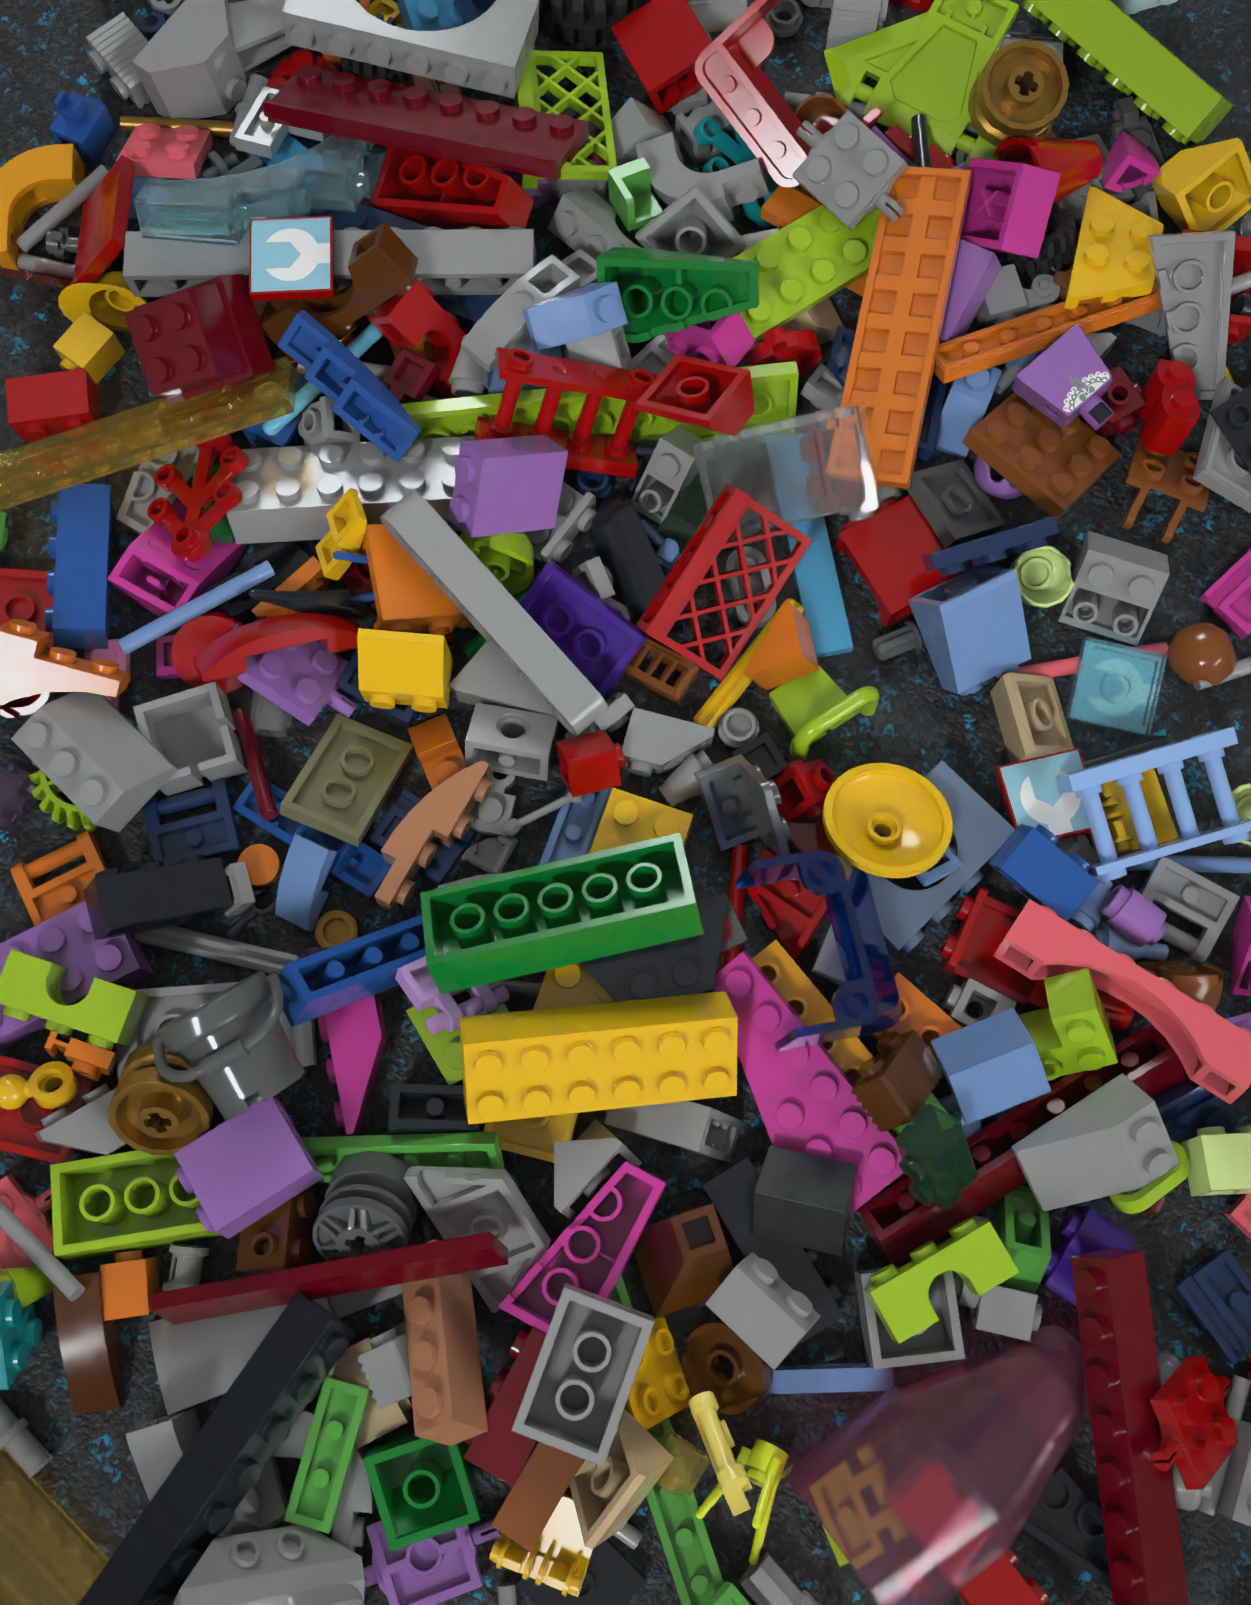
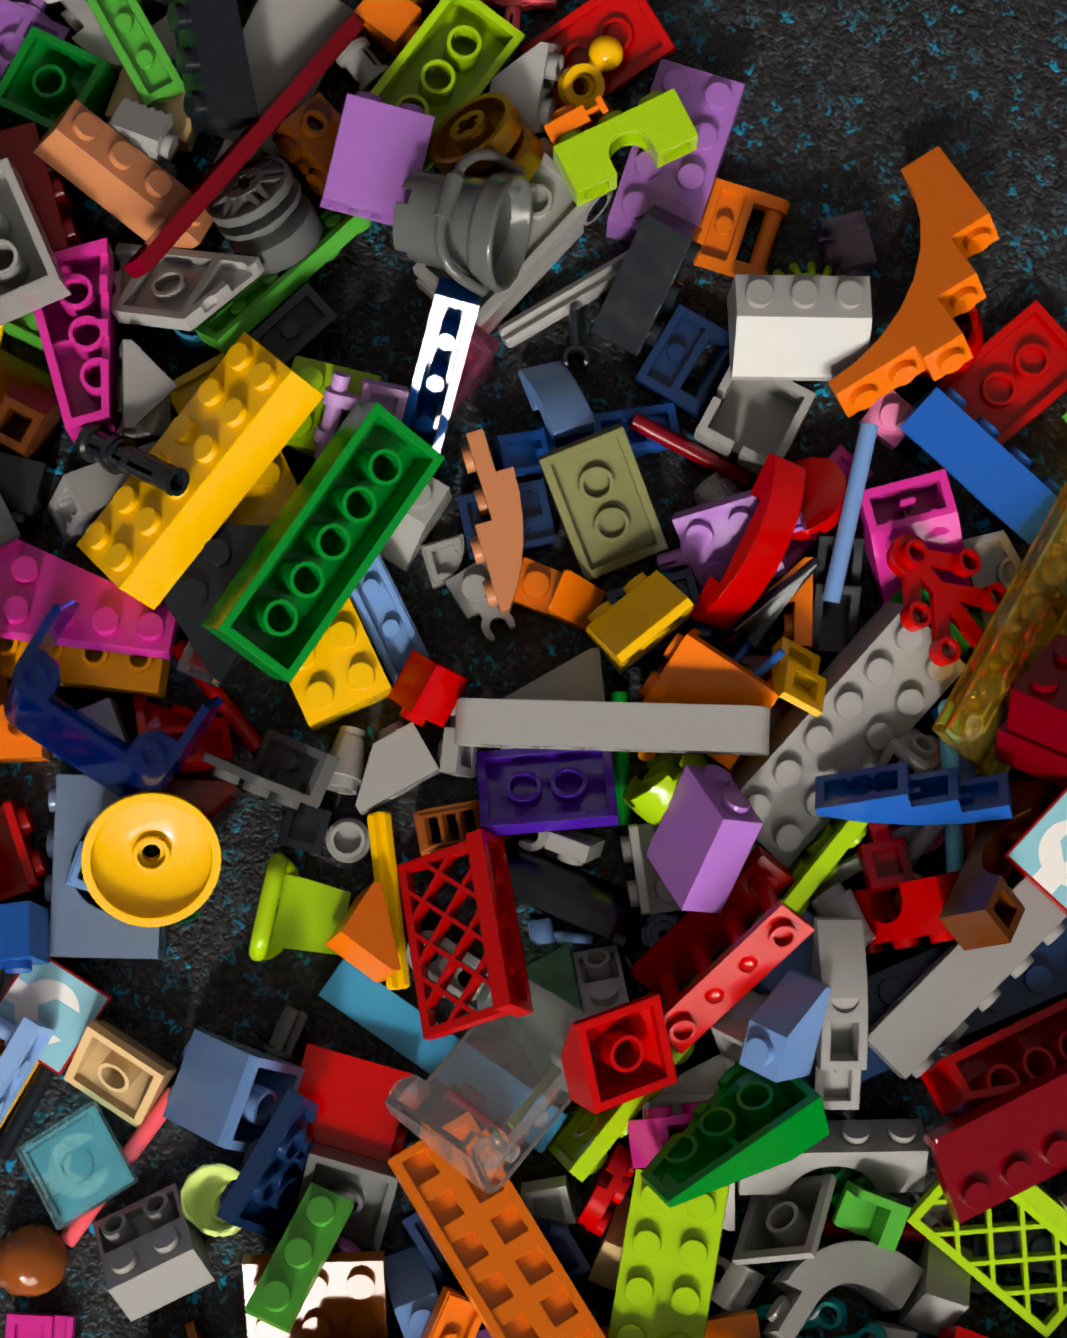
camera: 140 degrees right, 5 degrees up
(239, 887) = (603, 350): light grey tile -> none
(262, 864) = (608, 383): orange tile -> none
(336, 928) = (500, 392): pearl gold tile -> none
(357, 1047) = (389, 312): dark pink slope -> none
(511, 741) = (485, 653): light grey brick -> none
(514, 825) = (444, 591): light grey hinge -> none
(644, 1120) = (119, 455): none -> black pin
(804, 789) = (246, 832): red brick -> none
(1023, 477) = (299, 1257): none -> bright green plate

